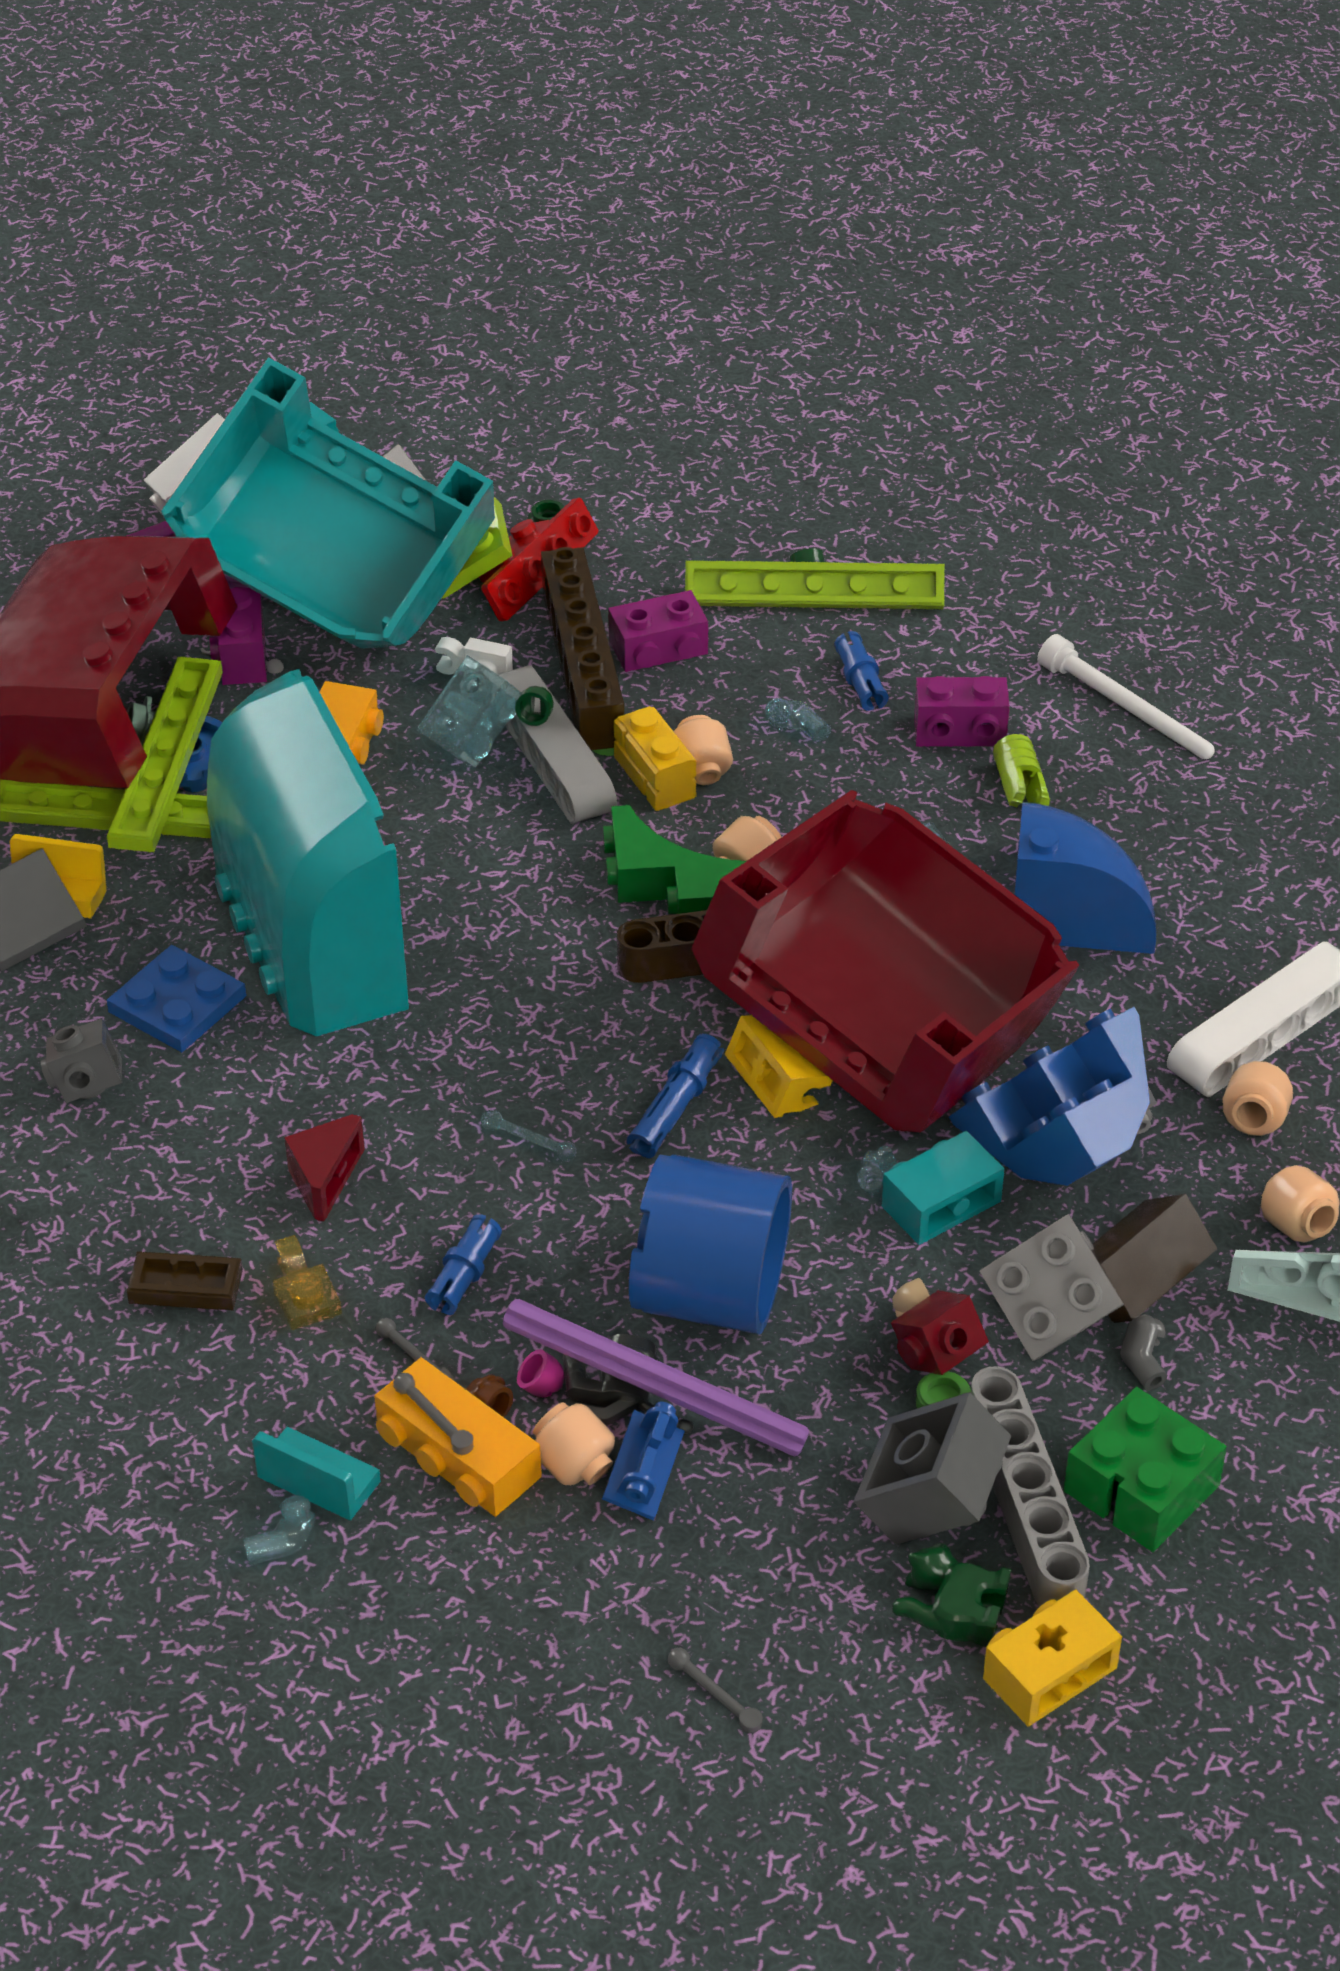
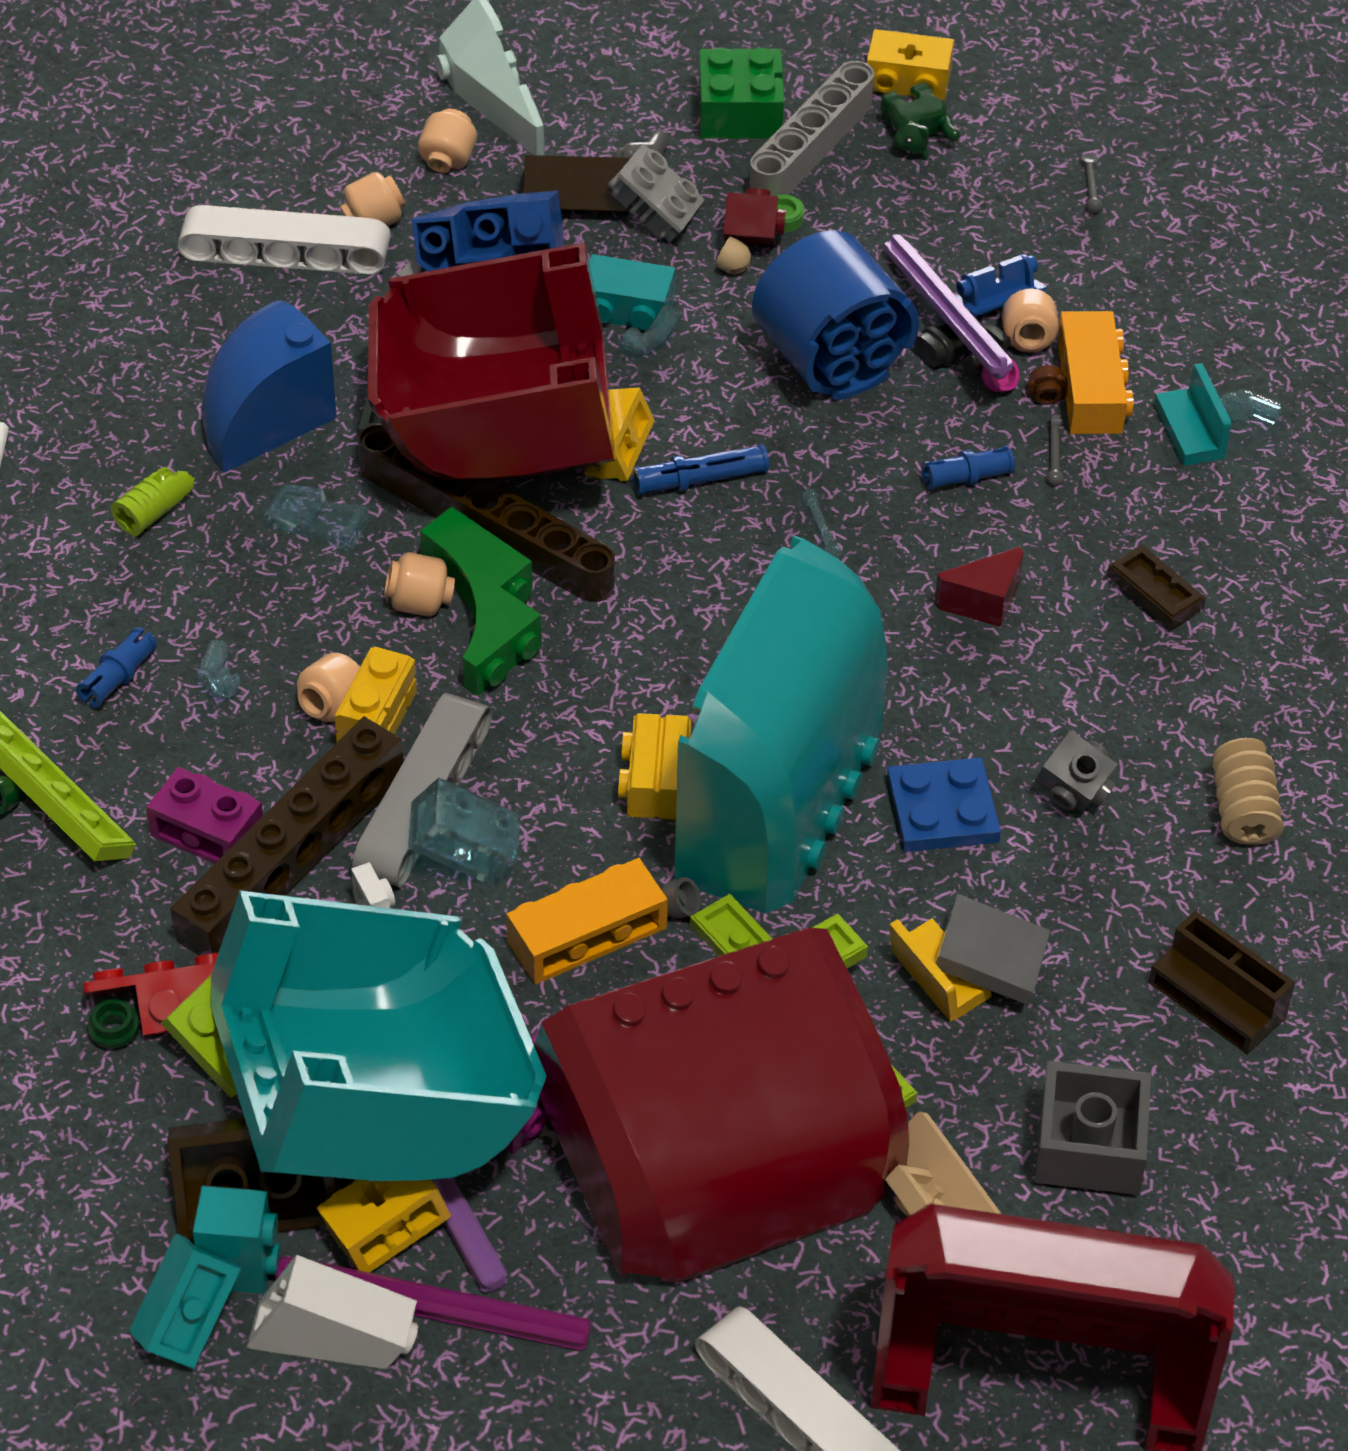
camera: 135 degrees left, 5 degrees up
(303, 1292) = (1080, 531): clear yellow plate -> none
(424, 866) = (653, 759): none -> yellow brick
(460, 1439) = (1107, 339): dark grey hinge -> none
(526, 703) = (414, 779): dark green hinge -> none
(933, 1469) = (864, 146): dark grey brick -> none
(963, 707) = (117, 564): magenta brick -> none

